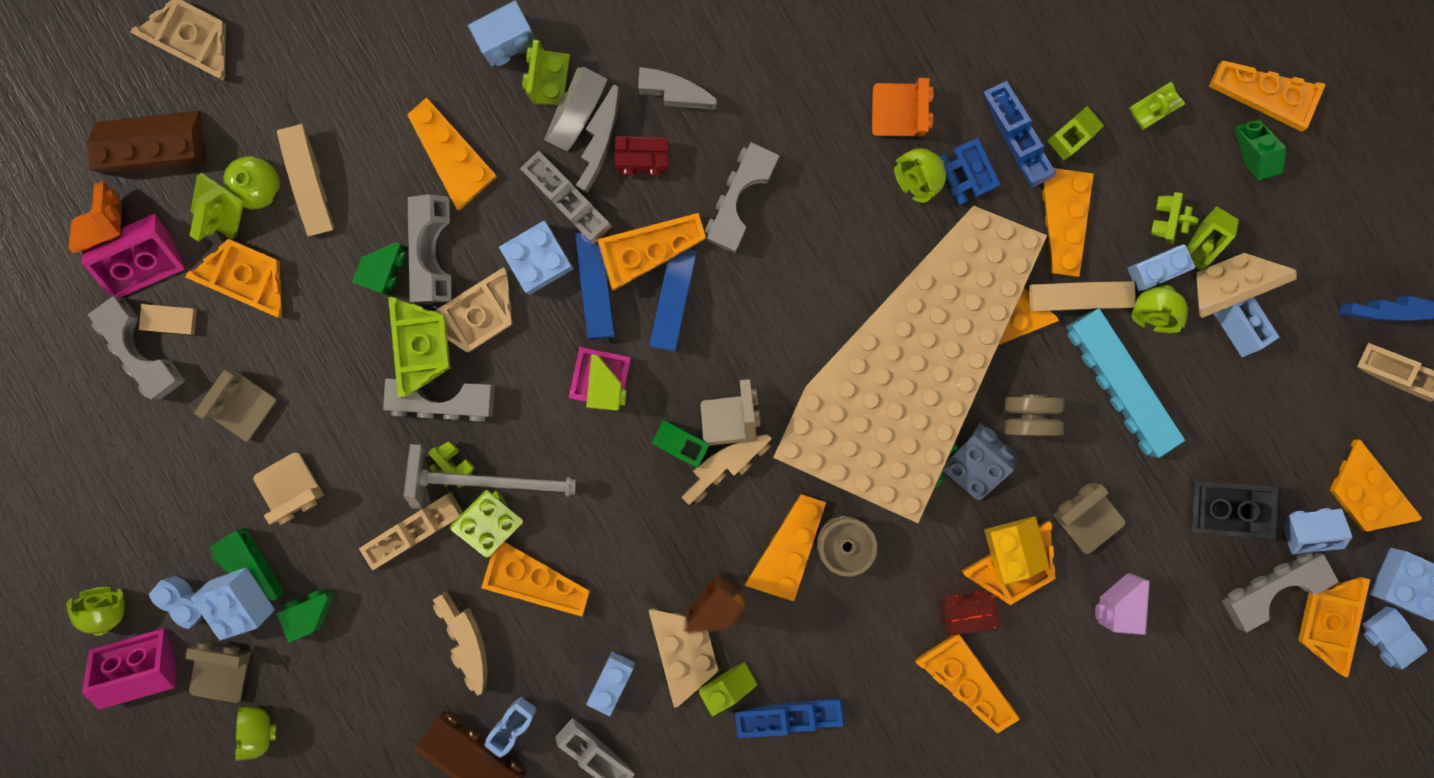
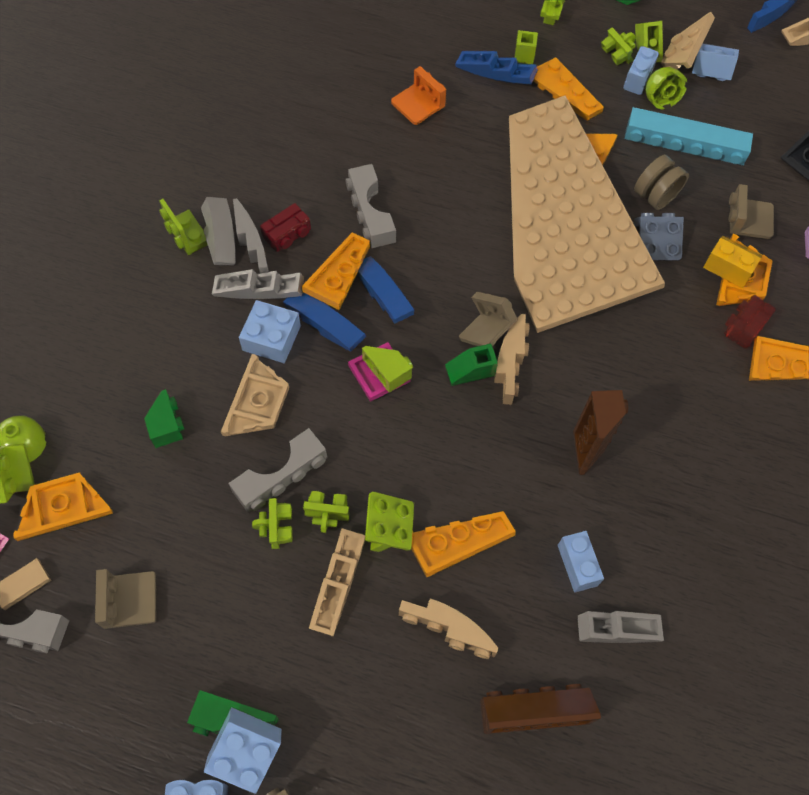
camera: 40 degrees left, 25 degrees down
(287, 488) = (215, 628): tan bracket -> none
(305, 179) = (61, 405): tan slope -> none
(305, 617) = (310, 716): green slope -> none
(393, 452) = (277, 534): none -> lime hips
(418, 345) = (234, 441): lime wing -> none
(419, 477) = (312, 528): light grey tile -> none
(426, 219) = (172, 362): light grey arch -> none
(453, 158) = (166, 321): light orange wing -> none
(502, 34) = (134, 221): light blue brick -> none
(510, 727) = (544, 665): light blue brick -> none
(676, 90) = (274, 180): light grey slope -> none
(685, 656) = (606, 501): tan wing -> none
(727, 688) = (658, 499): lime slope -> none
(785, 558) = (601, 369): light orange wing -> none
(789, 717) = (717, 481): blue slope -> none
(854, 559) = (636, 339): dark tan wheel -> none
(920, 173) = (463, 119): lime cylinder -> none
(976, 169) = (488, 97): blue plate -> none
(1082, 296) = (614, 113): tan slope -> none

